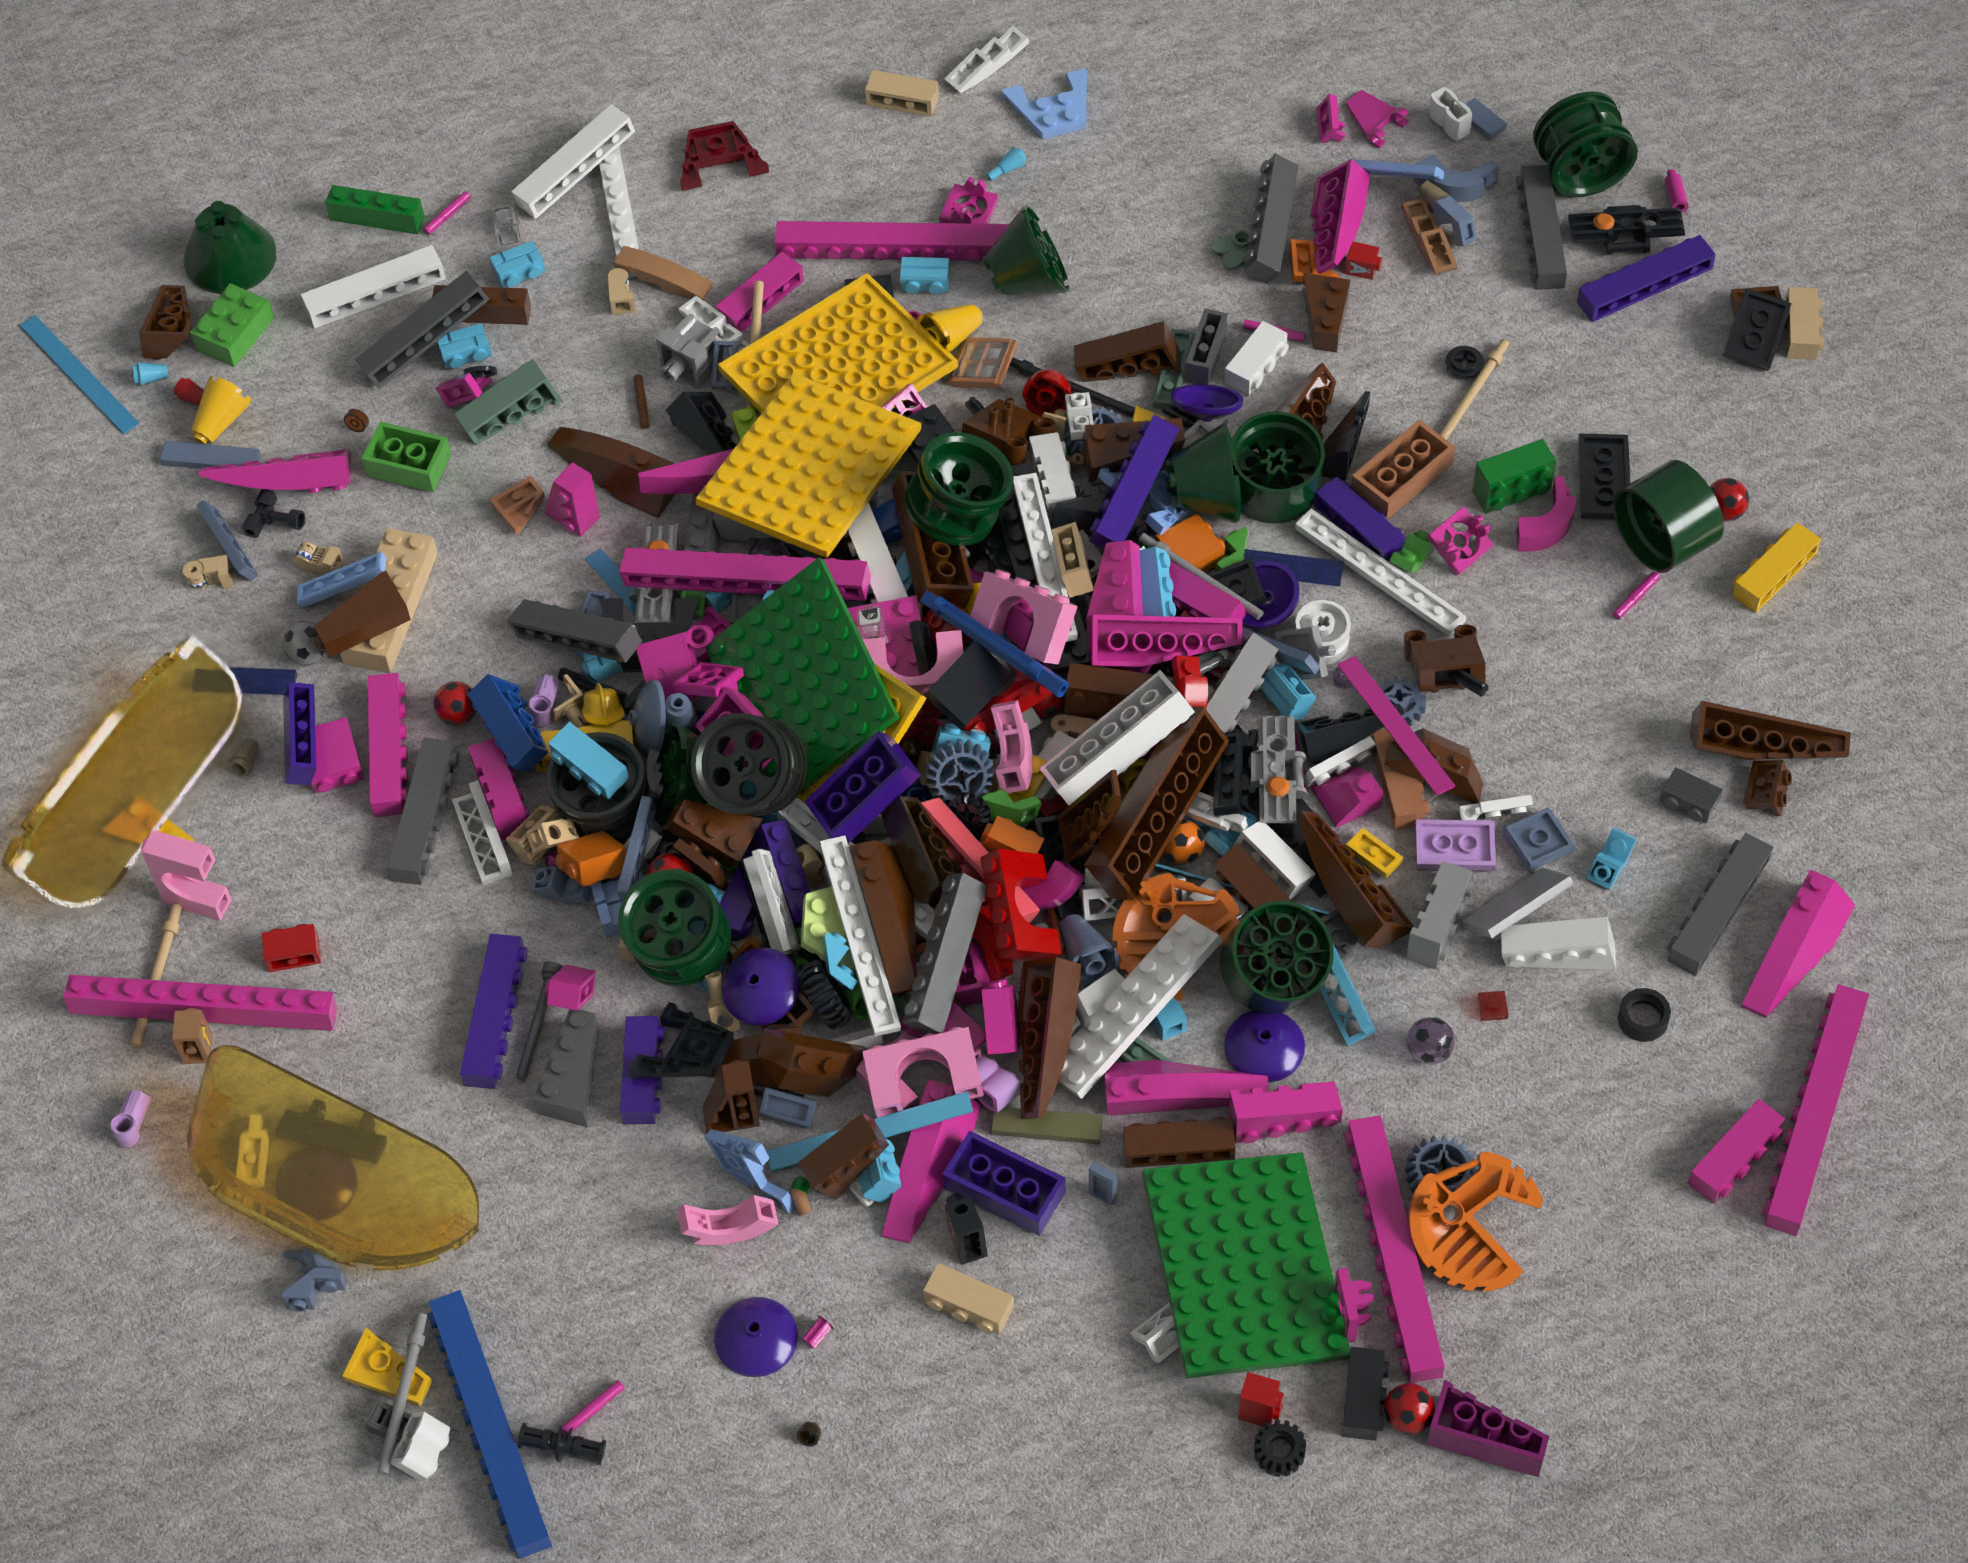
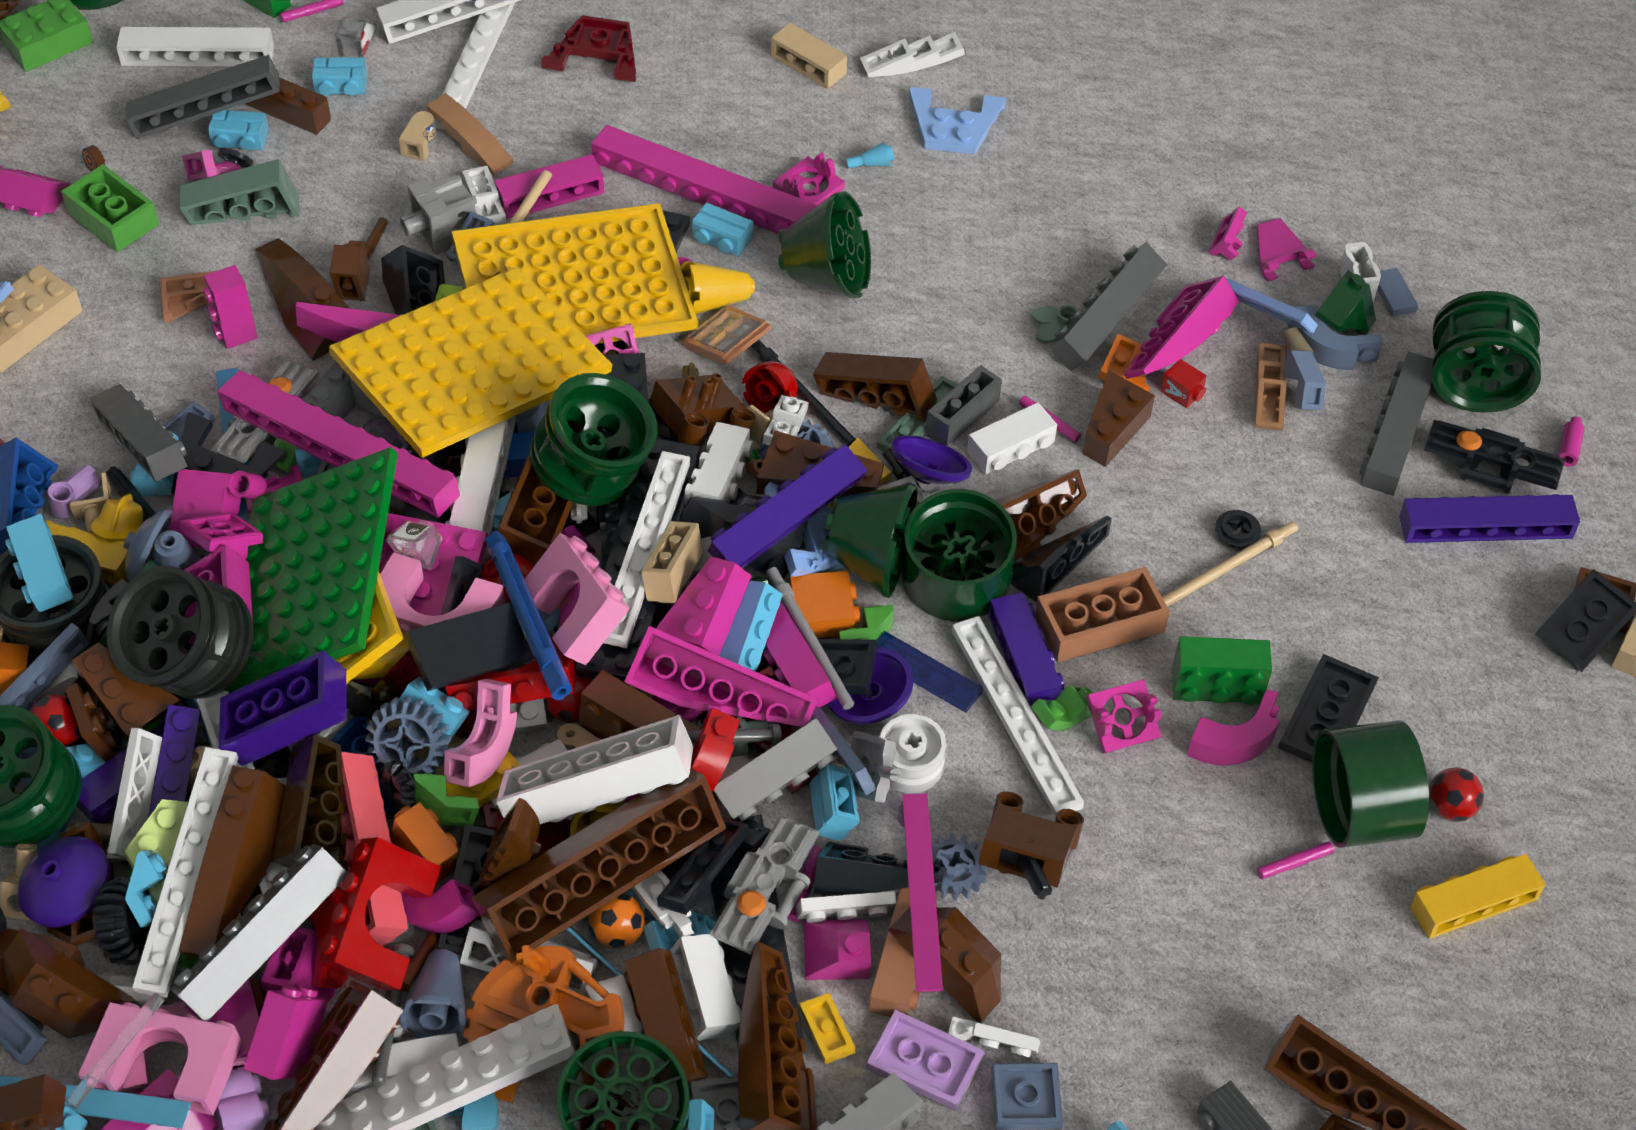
camera: 20 degrees right, 5 degrees down
(649, 428) = (350, 270): none -> reddish brown hinge
(892, 1079) = (114, 1050): none -> clear bar
(1456, 144) = (1349, 305): none -> dark green slope

